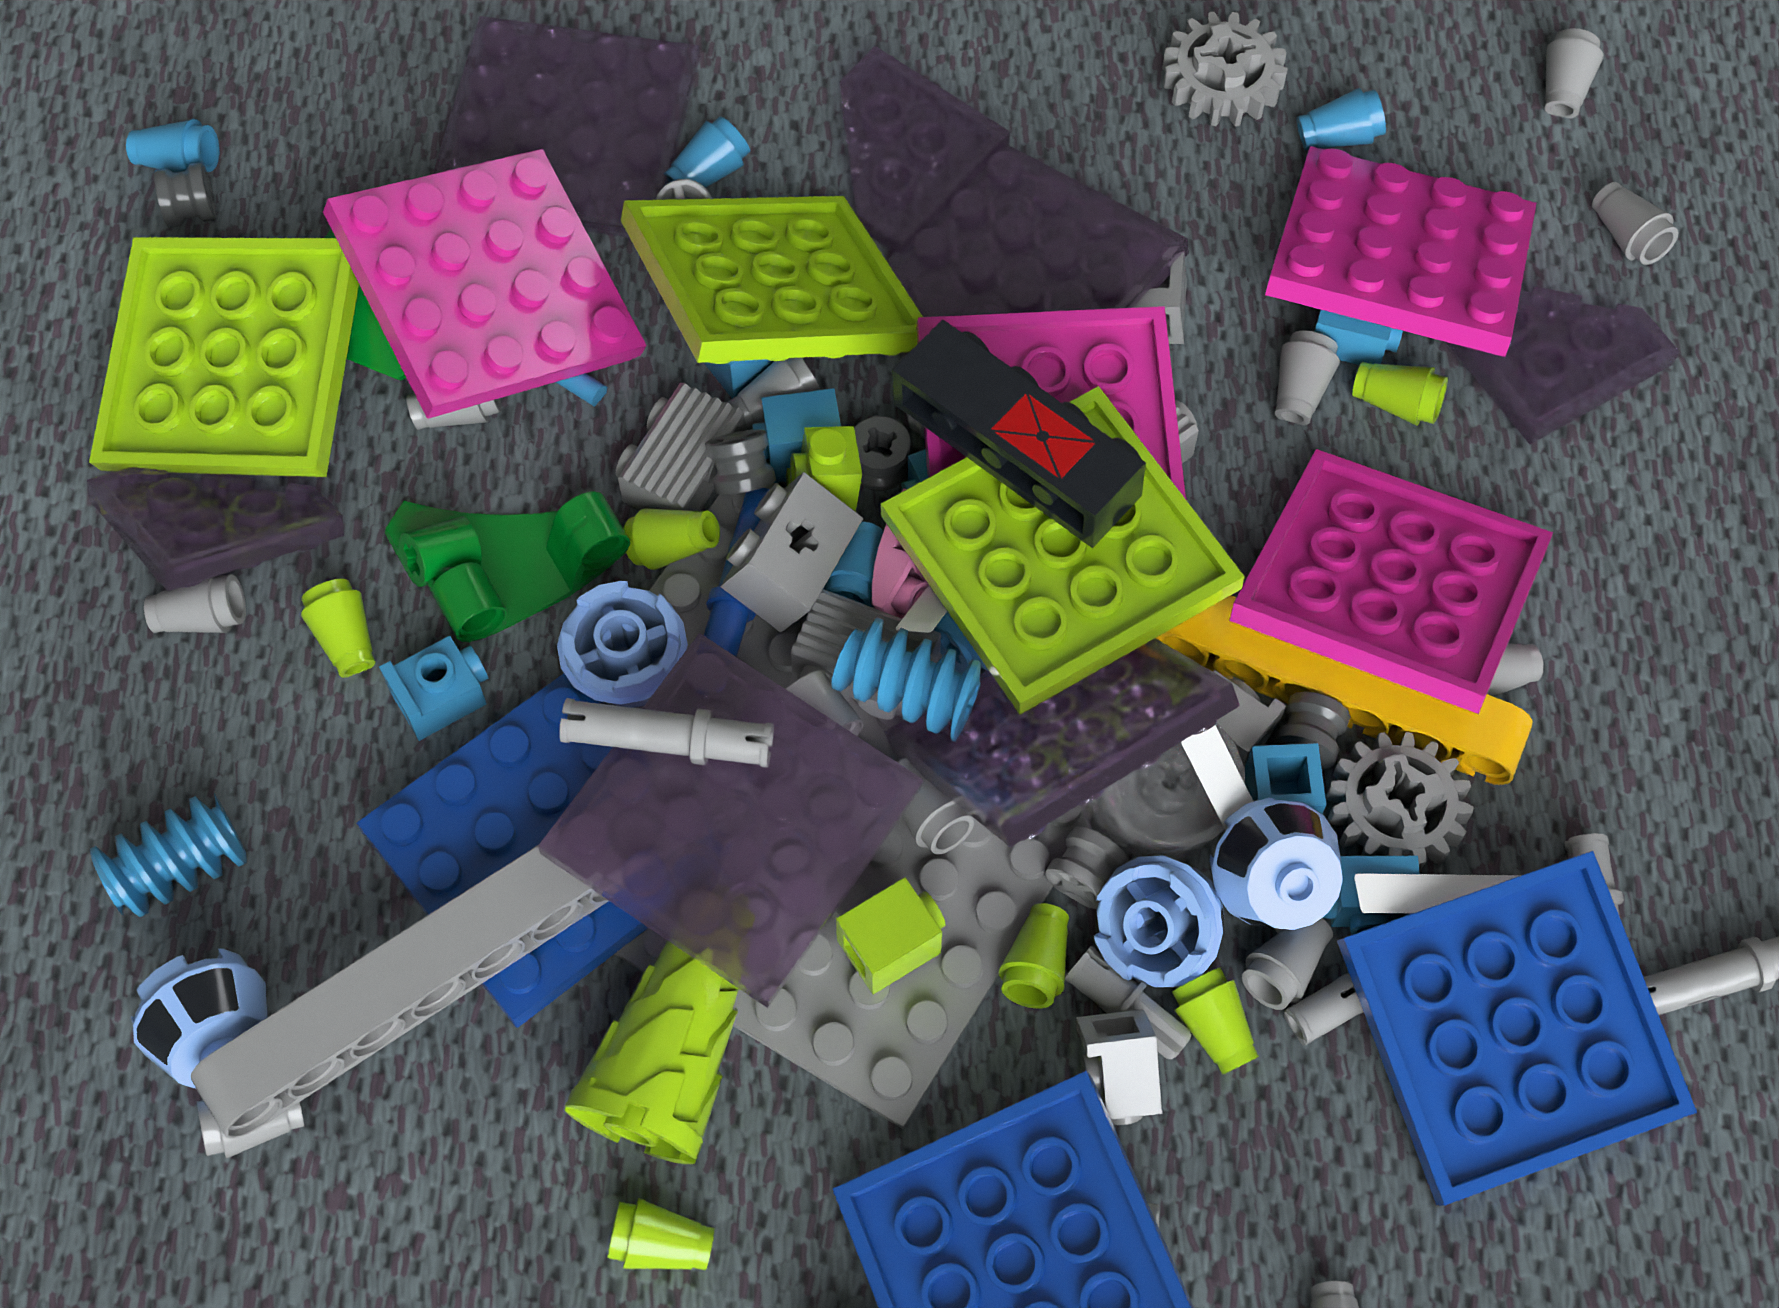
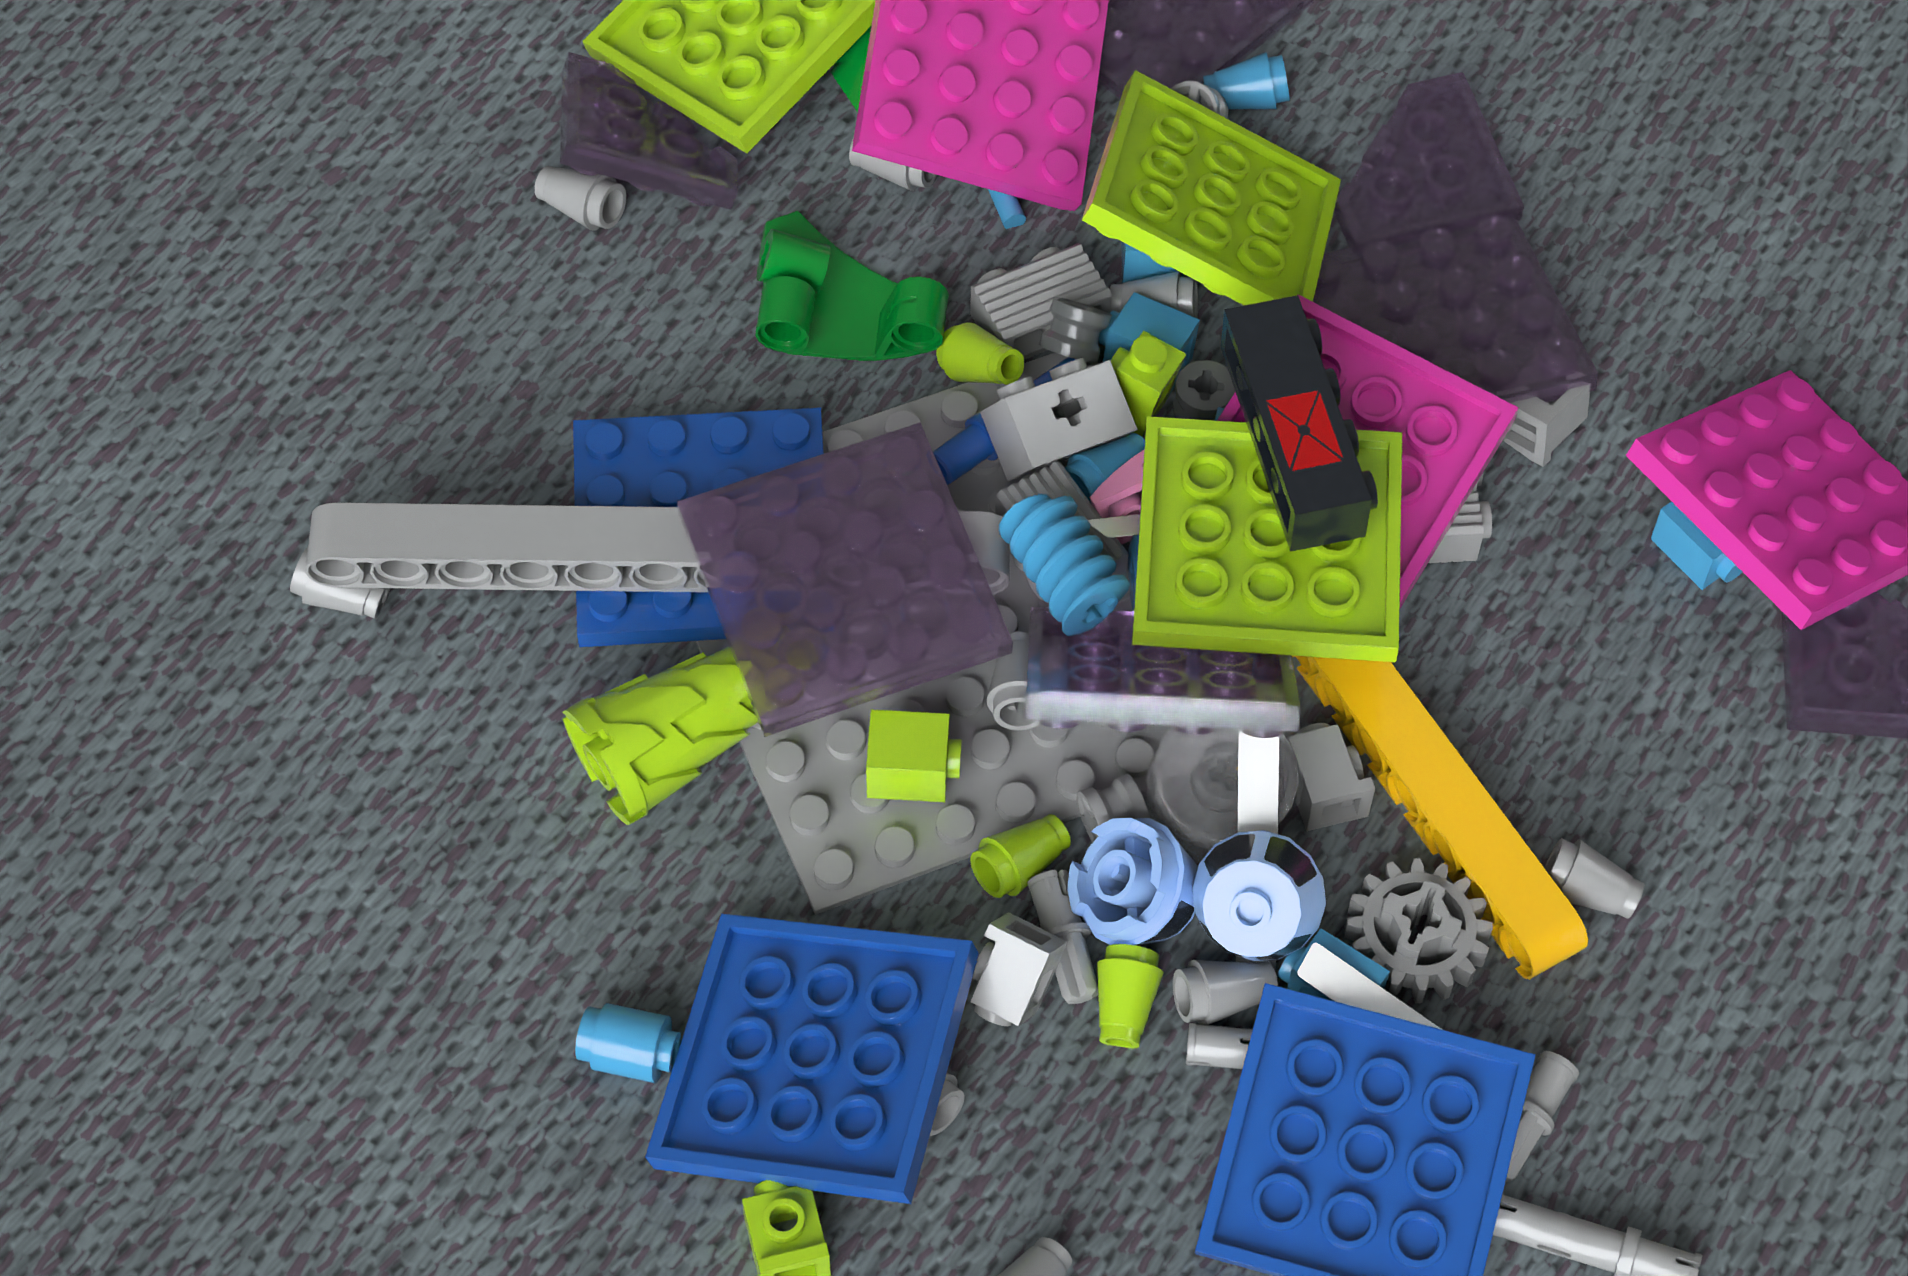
camera: 35 degrees right, 5 degrees down
(168, 857) = (423, 363): dark azure piece -> none
(196, 1010) = (355, 468): light blue cone -> none
(339, 625) = (676, 271): lime cone -> none
(436, 704) = (712, 361): dark azure brick -> none
(620, 644) = (865, 399): light blue cone -> none
(658, 1238) = (564, 862): lime cone -> none
(667, 732) = (851, 490): light grey pin -> none
(1218, 69) = (1763, 262): light grey gear -> none
(1286, 774) = (1334, 843): dark azure brick -> none
(1304, 375) = (1625, 550): light grey cone -> none
(1314, 720) = (1390, 828): dark grey wheel -> none
(1344, 121) = (1837, 366): dark azure cone -> none
(1393, 579) = (1554, 749): dark pink plate -> none
(1402, 390) = (1704, 616): lime cone -> none

